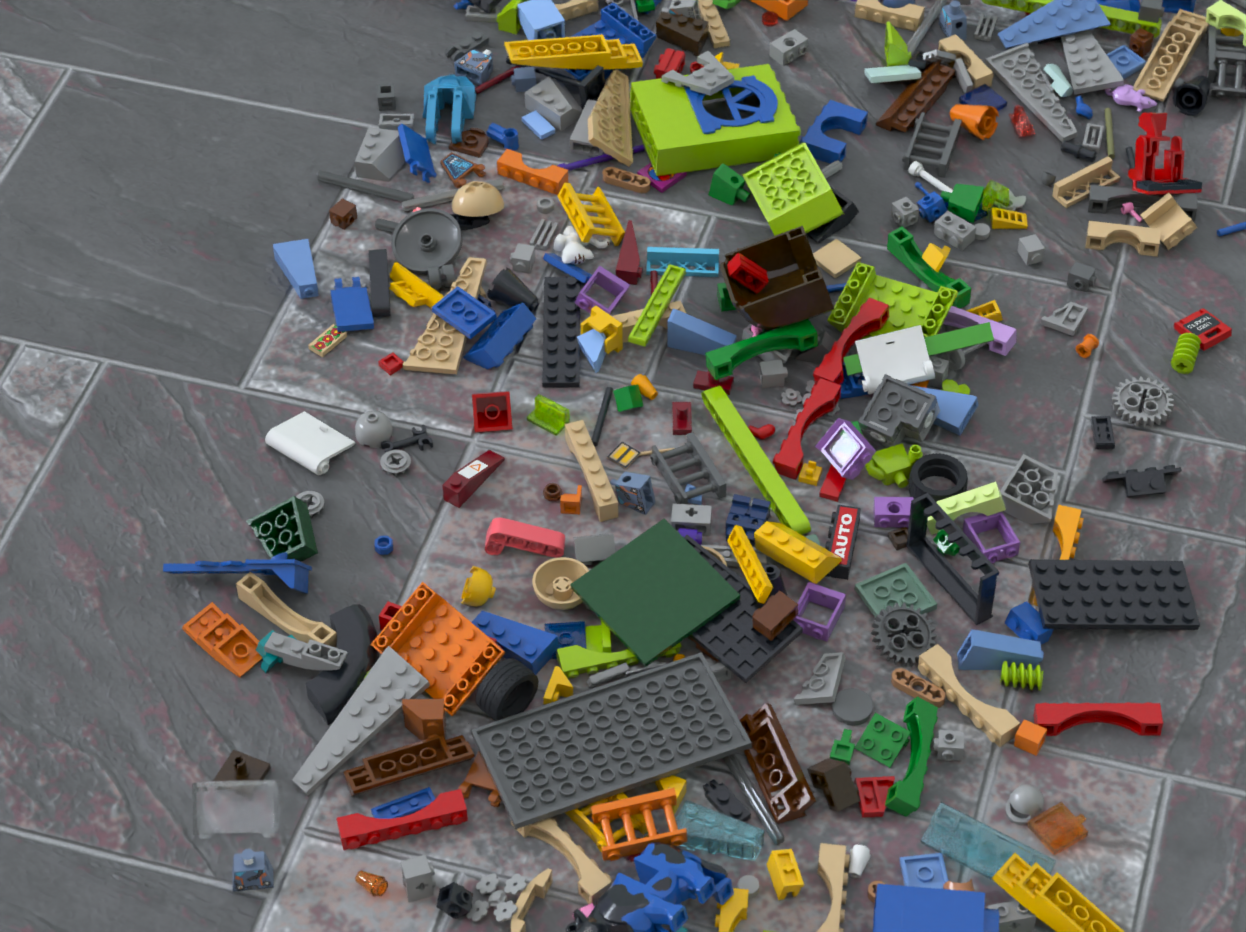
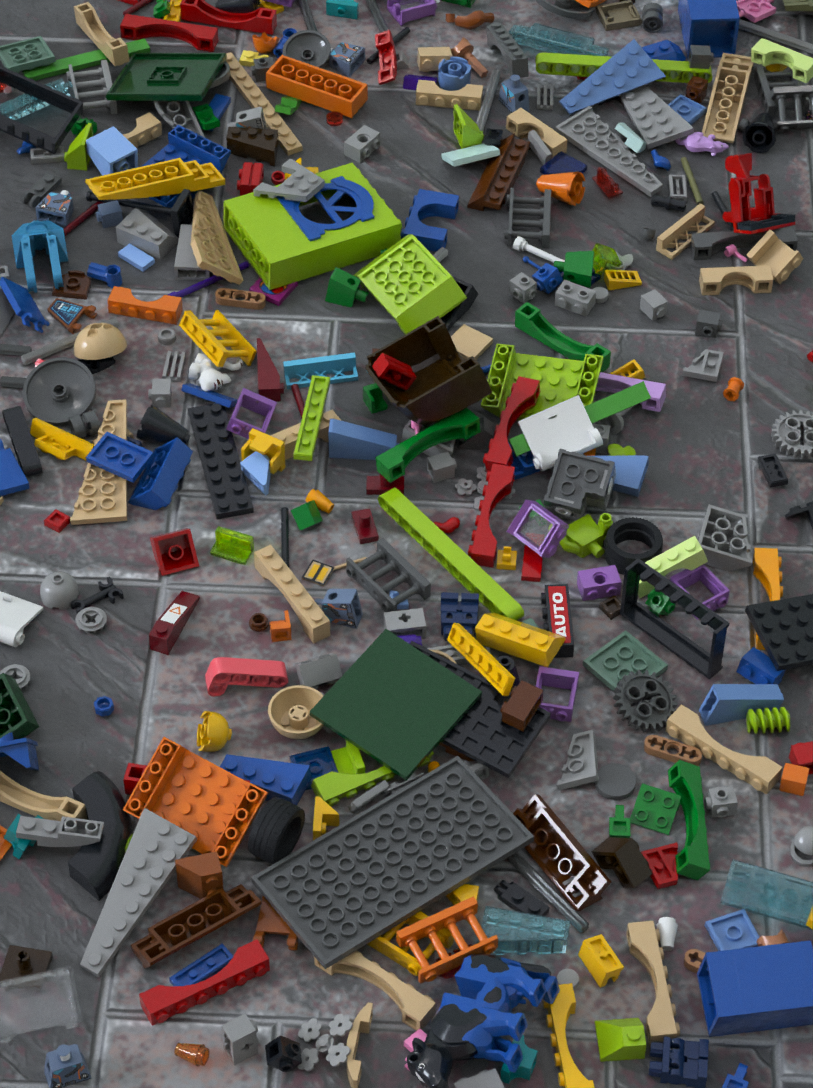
camera: 15 degrees left, 0 degrees up
(935, 256) = (567, 325): yellow slope -> none
(944, 56) = (511, 129): light grey tile -> none

